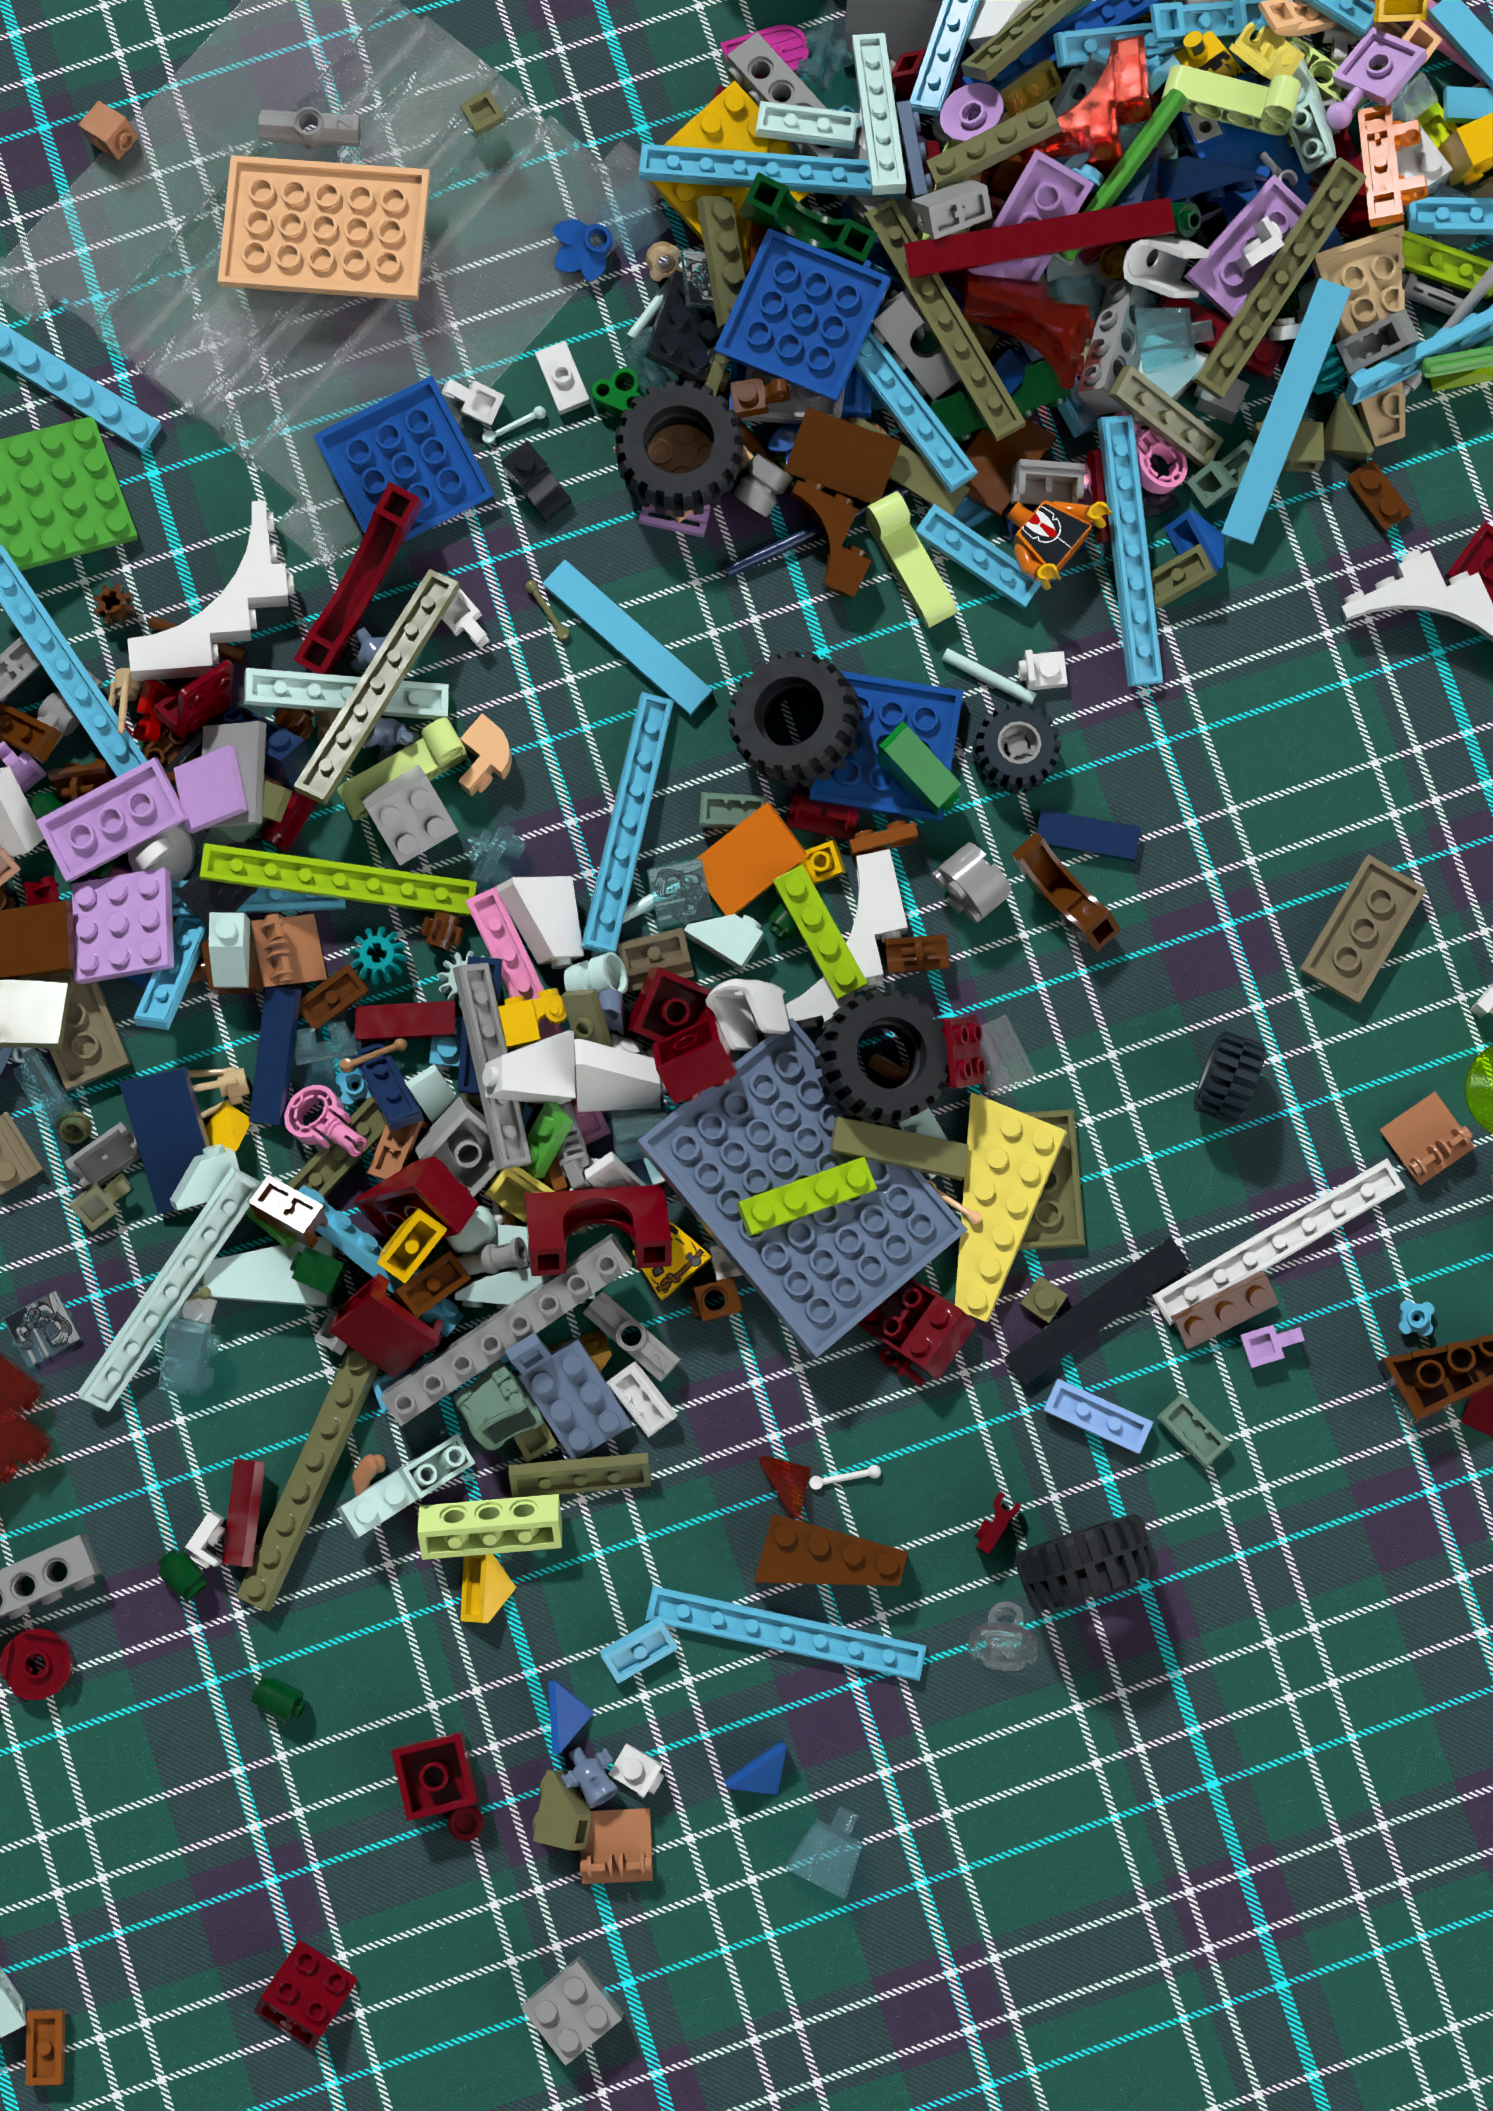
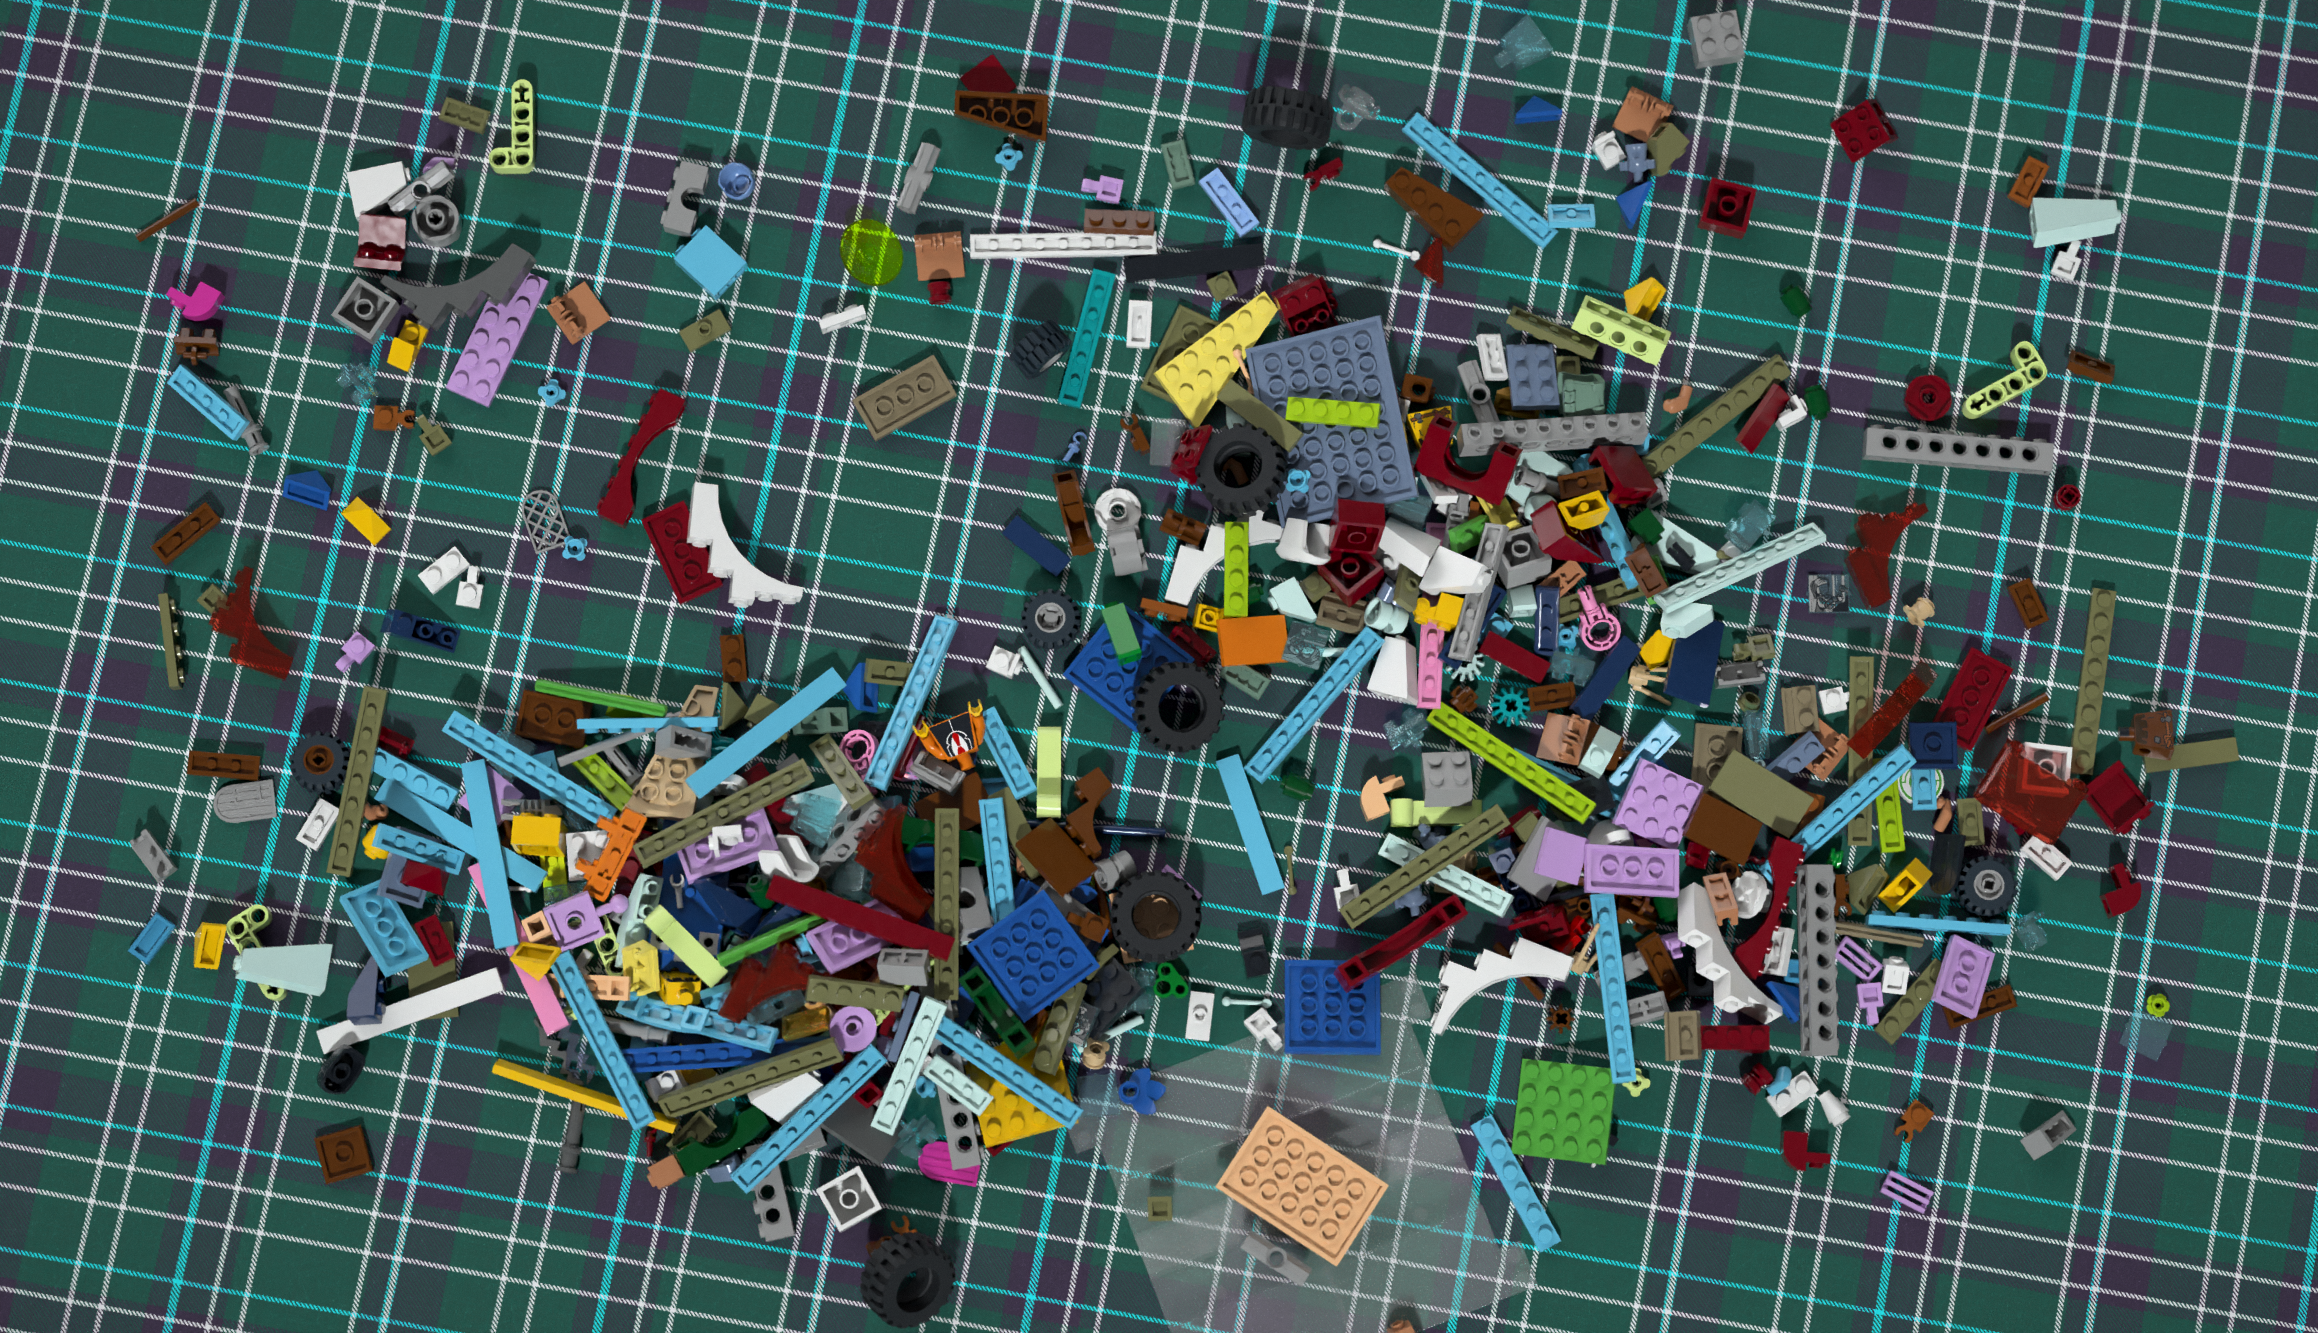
camera: 160 degrees left, 0 degrees up
(253, 1259) = (1682, 558): none -> black pin
(347, 1064) = (1565, 646): medium nougat hinge -> none
(405, 1486) = (1658, 382): light aqua slope -> none
(466, 1823) = (1723, 172): dark red tile -> none
(528, 1353) = (1547, 411): sand blue tile -> none
(593, 711) = (1297, 787): none -> dark green brick
(709, 970) = (1314, 587): none -> olive plate
(807, 1076) = (1293, 475): none -> medium azure plate
(1006, 955) = (1117, 497): none -> white tile
(1036, 1037) = (1138, 441): none -> reddish brown plate
(1113, 985) = (1073, 447): none -> medium blue hand
(1121, 1189) = (1139, 324): none -> white plate
(1178, 1134) = (1086, 338): none -> teal plate
(1399, 1087) = (939, 293): none -> dark red wheel

